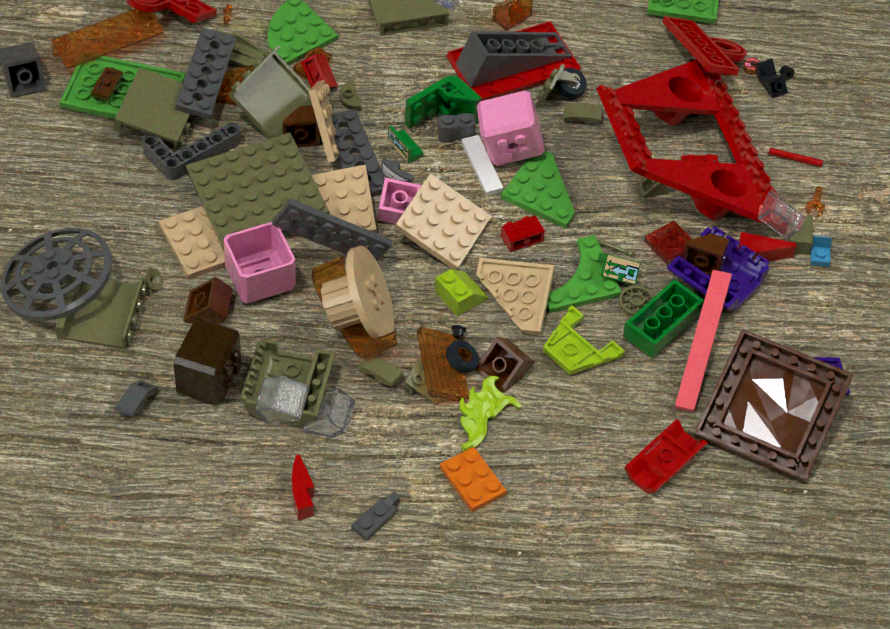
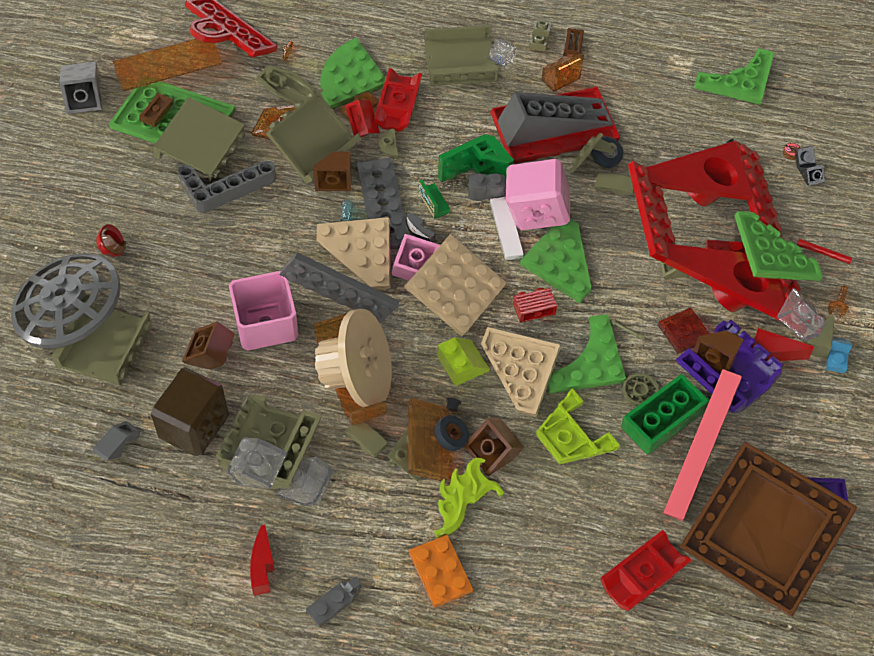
camera: 10 degrees right, 5 degrees up
(87, 215) = (110, 241): none -> piece
(153, 279) = (160, 314): olive plant -> none
(193, 242) = (213, 268): tan plate -> none
(212, 81) = (256, 117): dark grey plate -> none
(253, 184) = (274, 223): olive plate -> none
(320, 163) = (347, 207): none -> clear light blue pin
(323, 110) = (355, 157): tan plate -> none
(351, 53) = (397, 101): none -> red piece
(619, 268) = (627, 354): panel -> none
(707, 50) = (748, 130): red plate -> none
(744, 161) = (771, 254): none -> bright green plate
(787, 72) = (826, 161): black piece -> none

